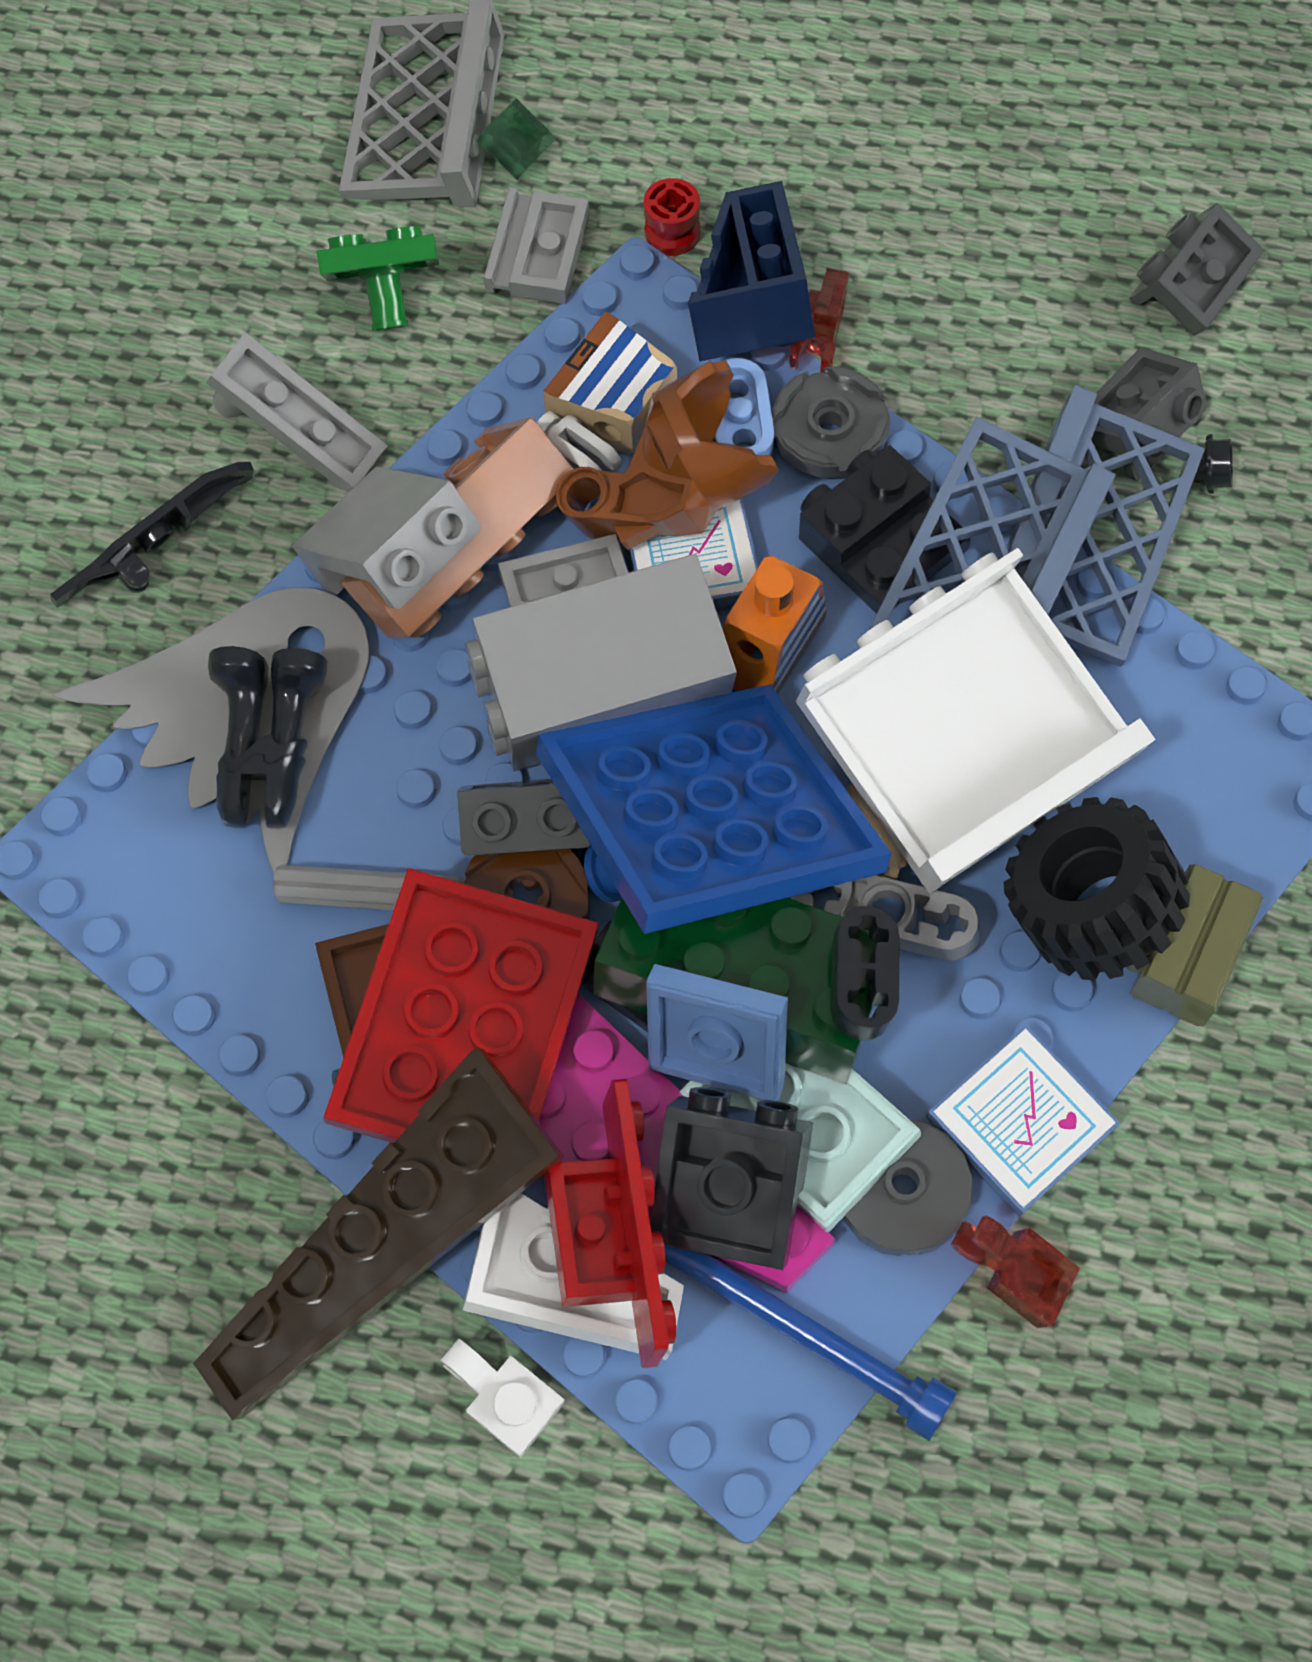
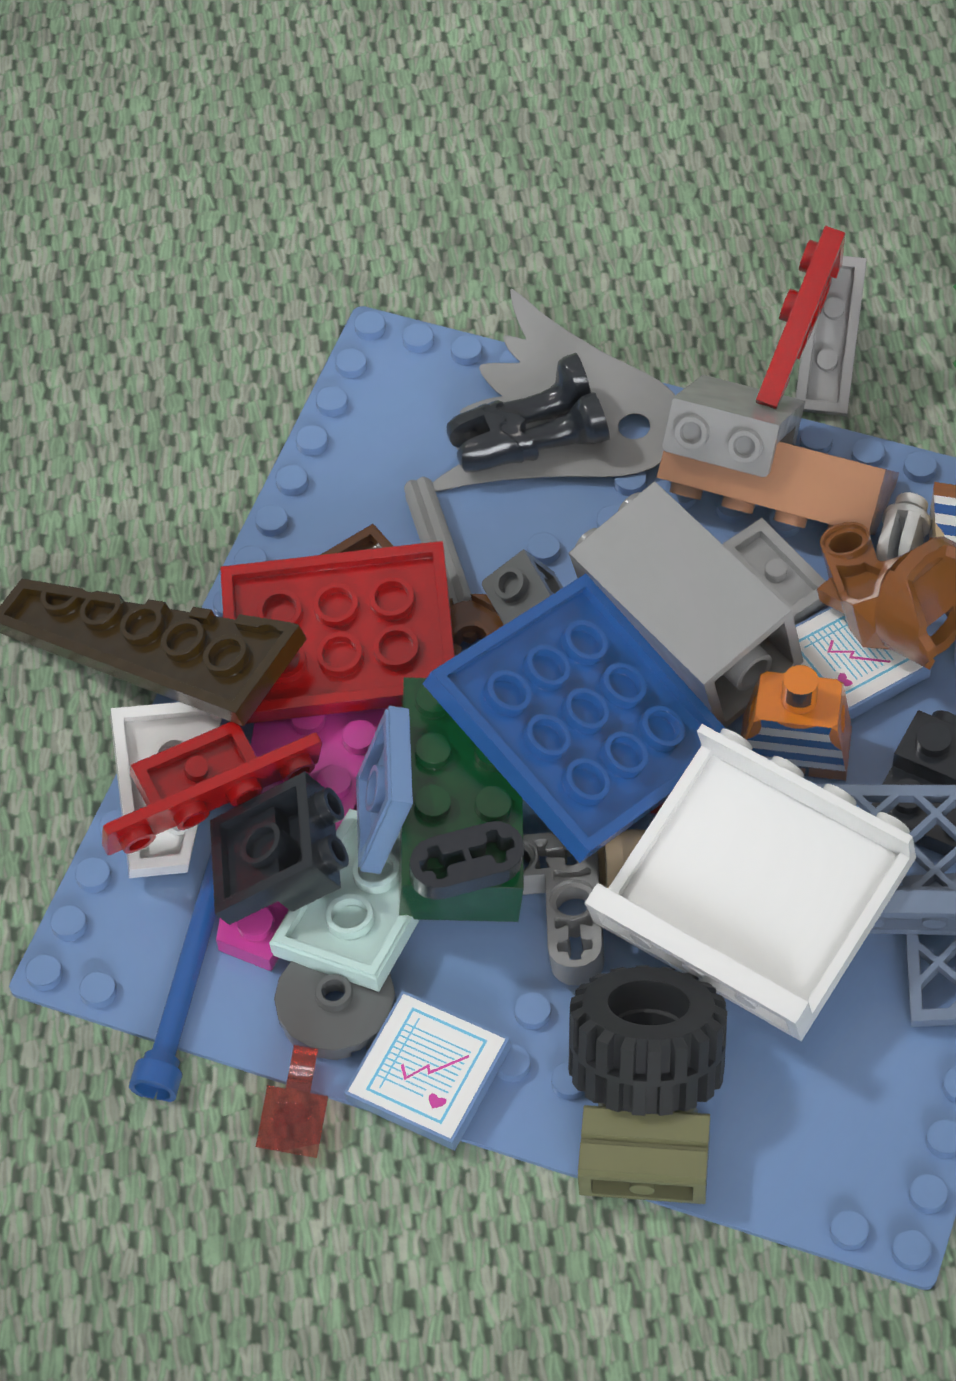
camera: 70 degrees right, 10 degrees down
(153, 531) = (651, 282): black piece -> none
(287, 388) = (802, 311): none -> red wing
(509, 1401) = (67, 790): white plate -> none

